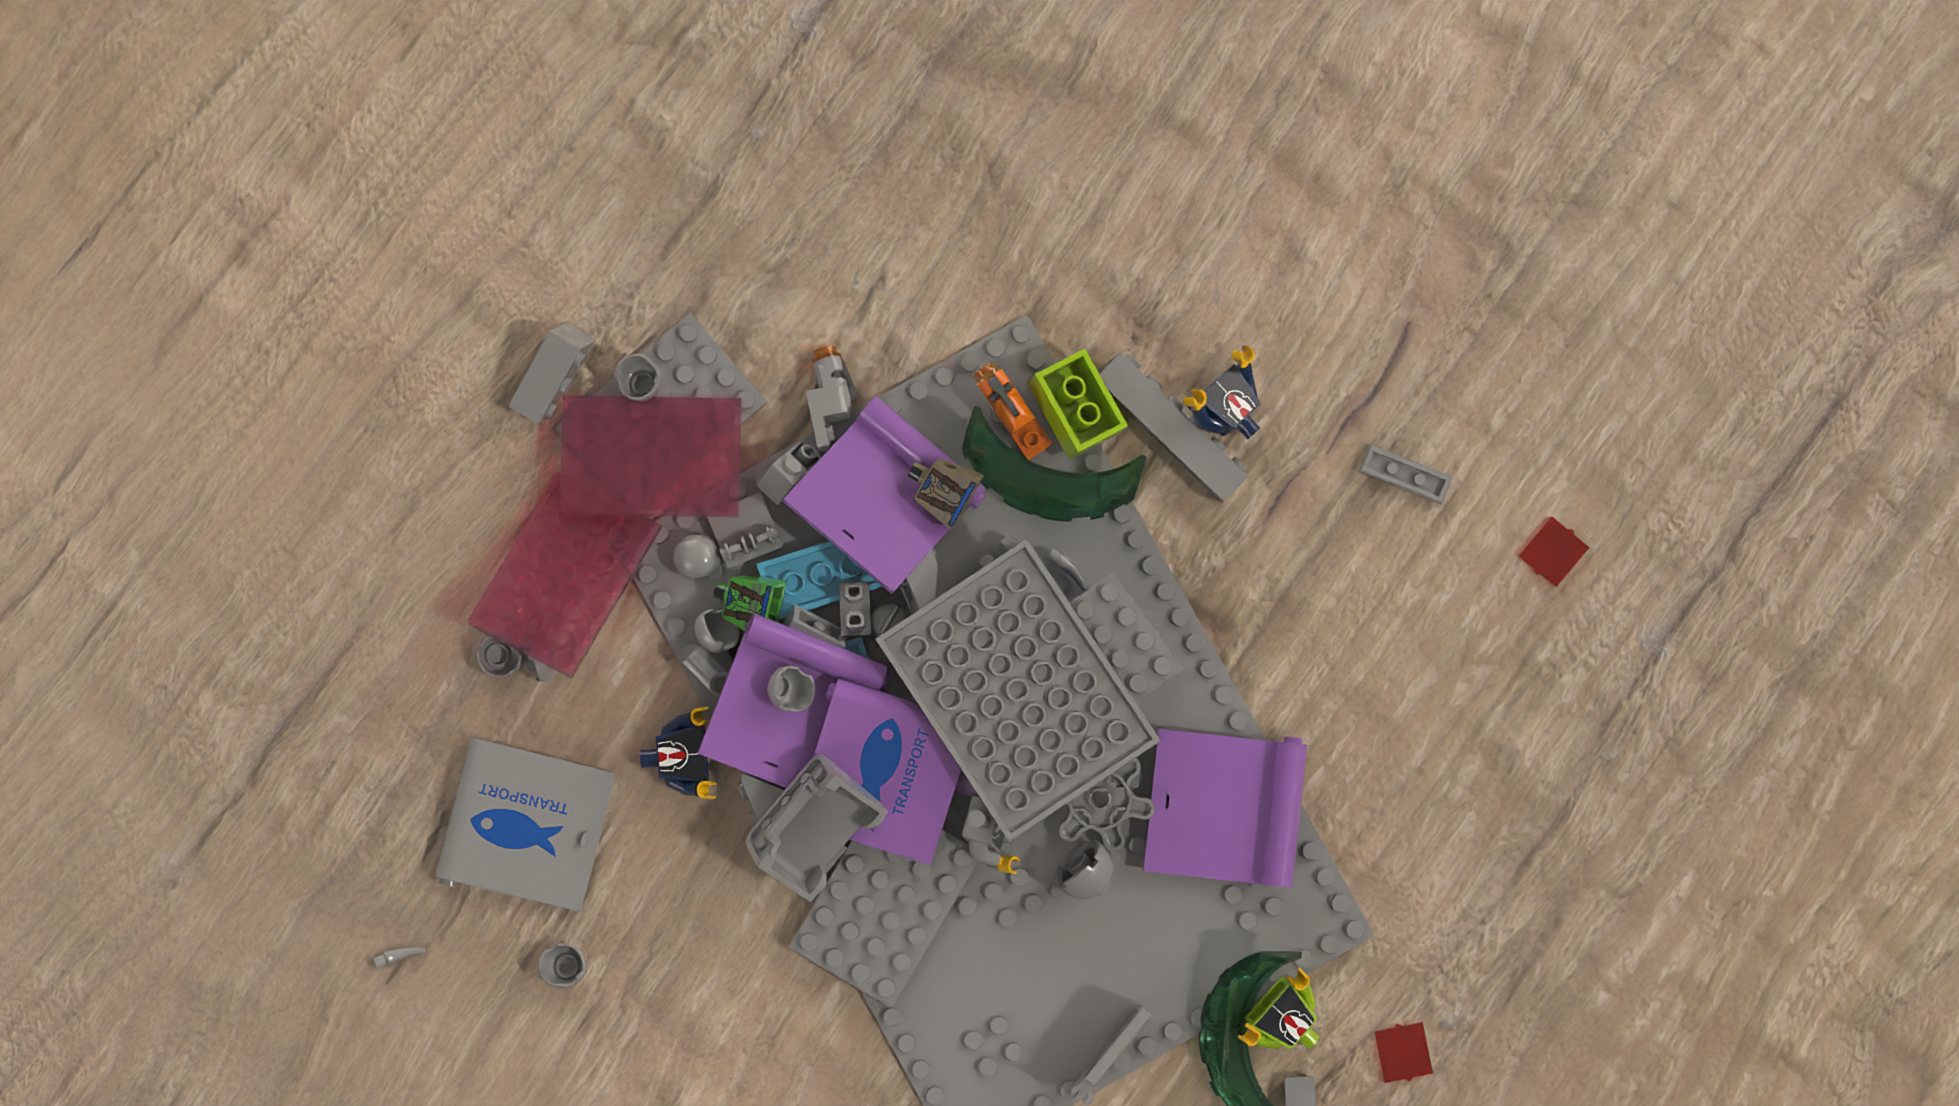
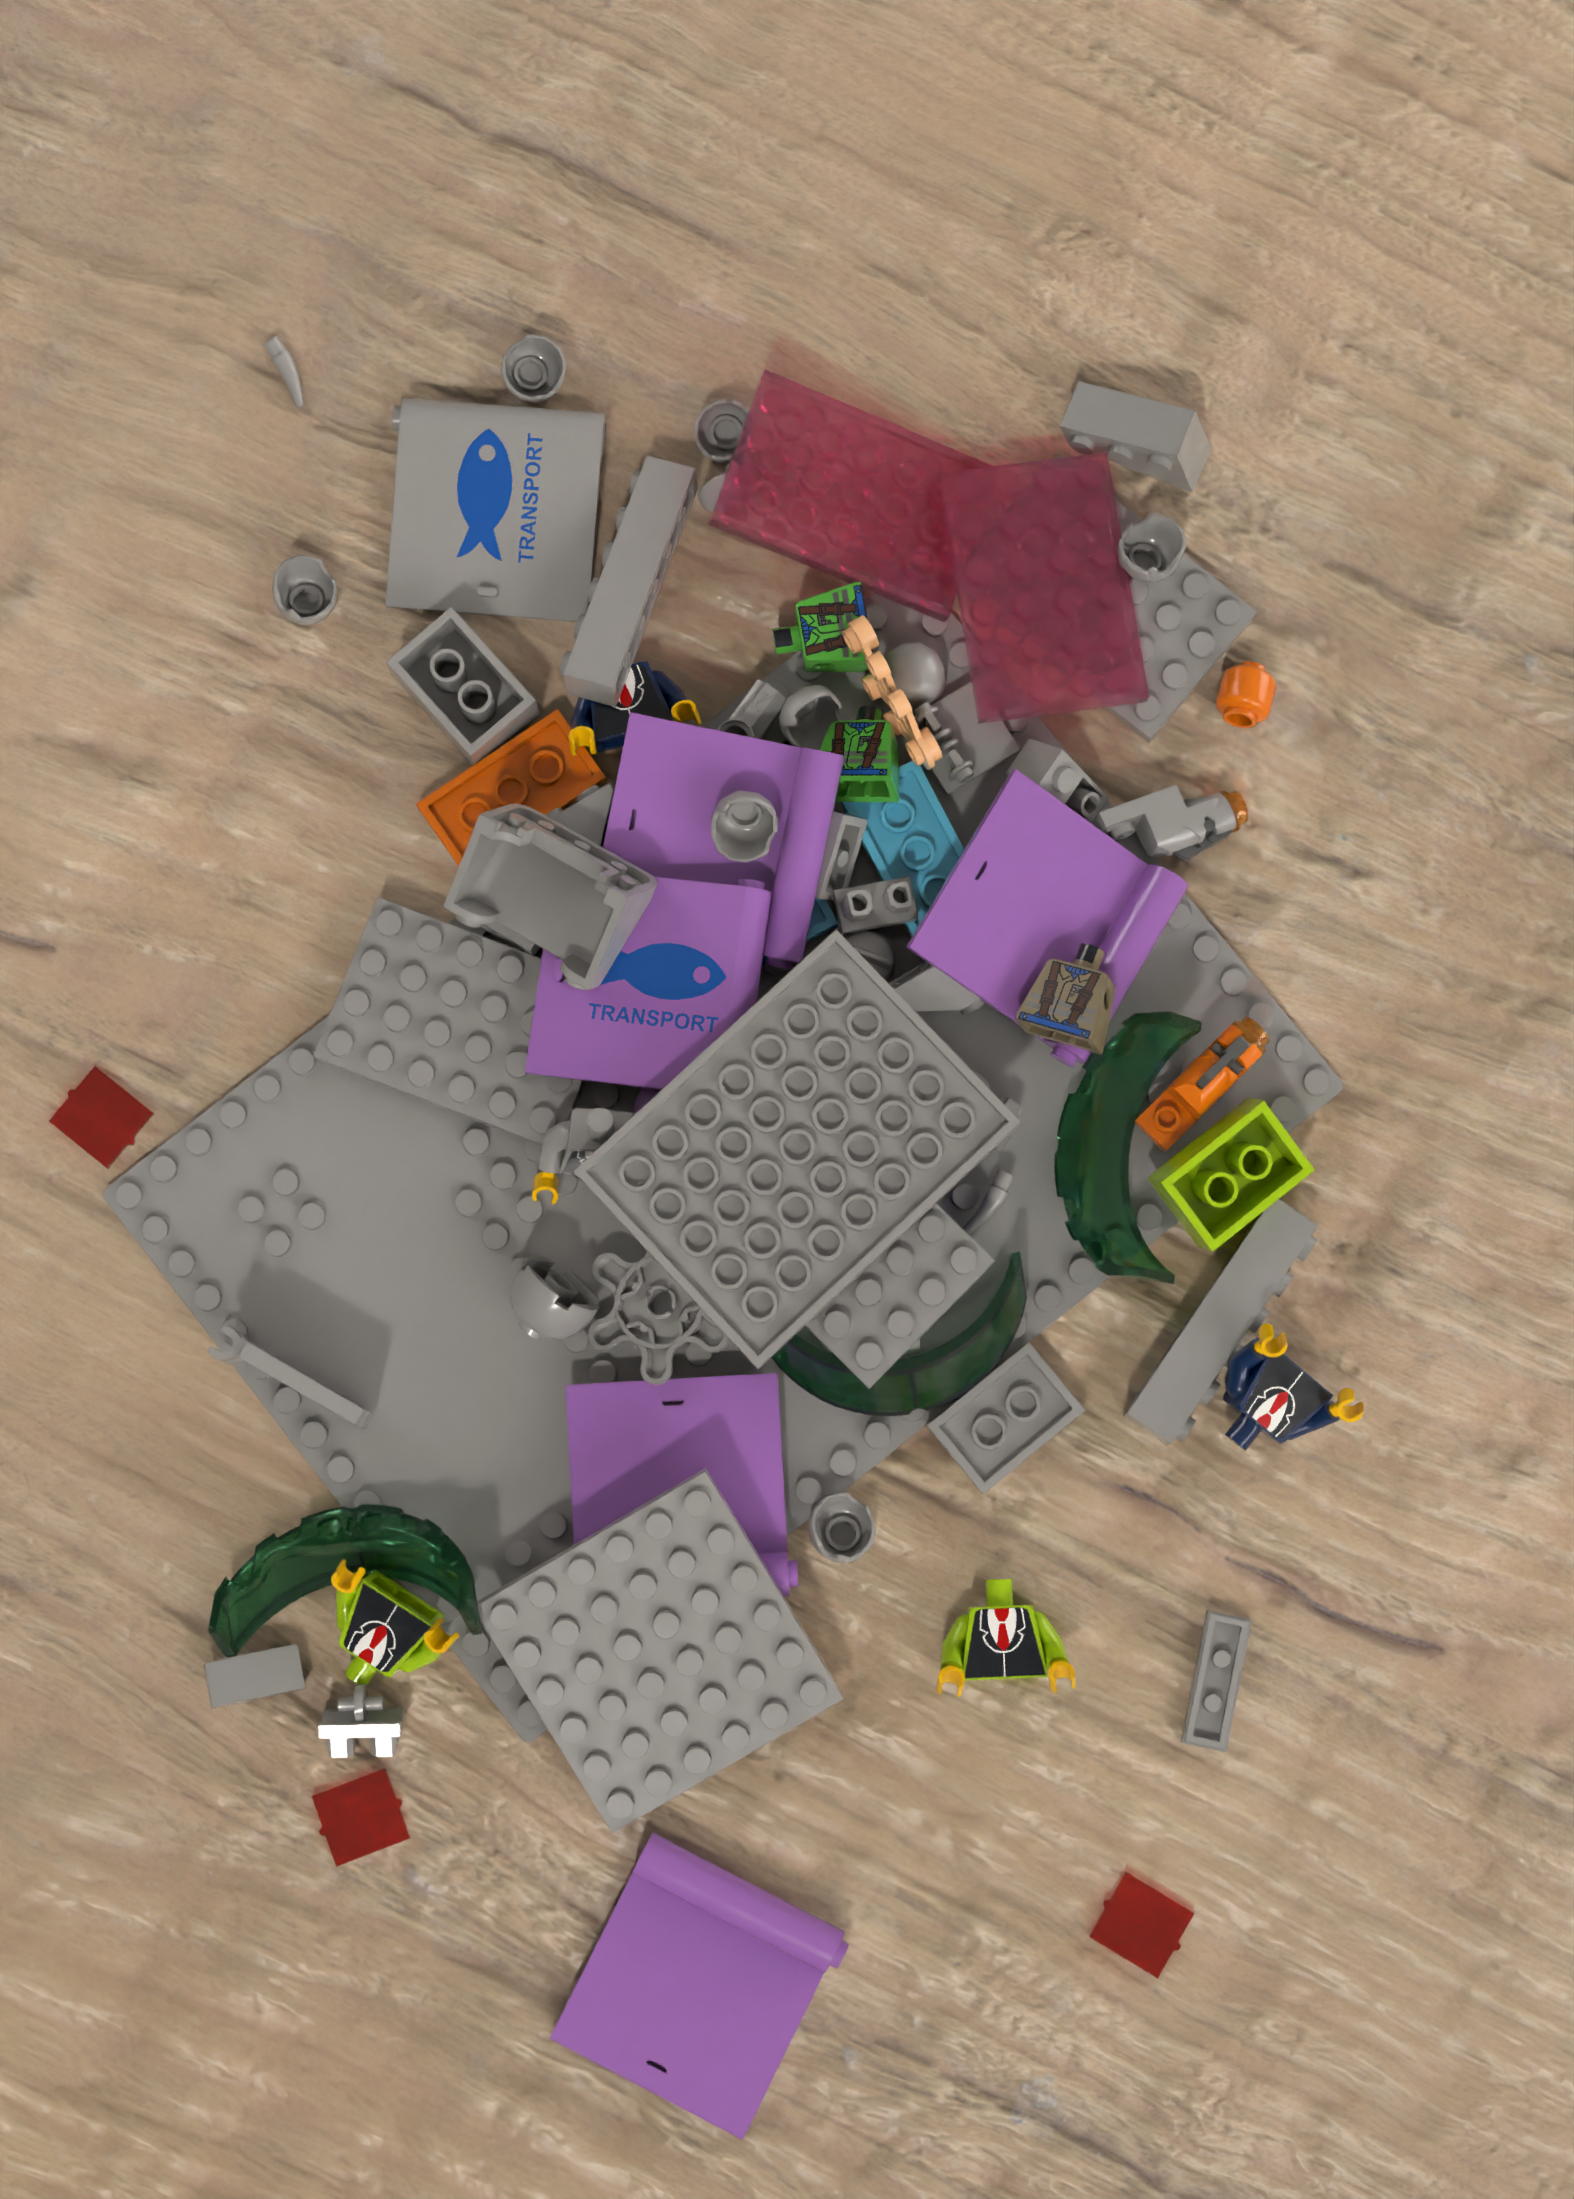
camera: 80 degrees right, 5 degrees down
(430, 781) = (533, 368): none -> light grey hair
(597, 738) = (629, 581): none -> light grey brick
(651, 866) = (463, 687): none -> light grey brick
(657, 607) = (820, 631): none -> torso
(720, 835) = (526, 771): none -> orange plate
(748, 331) = (1246, 694): none -> orange head
(752, 559) = (879, 683): none -> light nougat plant
(1179, 628) = (919, 1380): none -> clear green windscreen
(1212, 582) = (1005, 1418): none -> light grey plate
(1267, 703) = (841, 1528): none -> light grey hair
(1329, 837) = (658, 1650): none -> light grey plate
(1341, 1041) = (361, 1718): none -> light grey hips
(1360, 610) = (1002, 1643): none -> torso
(1545, 845) = (698, 1985): none -> medium lavender door

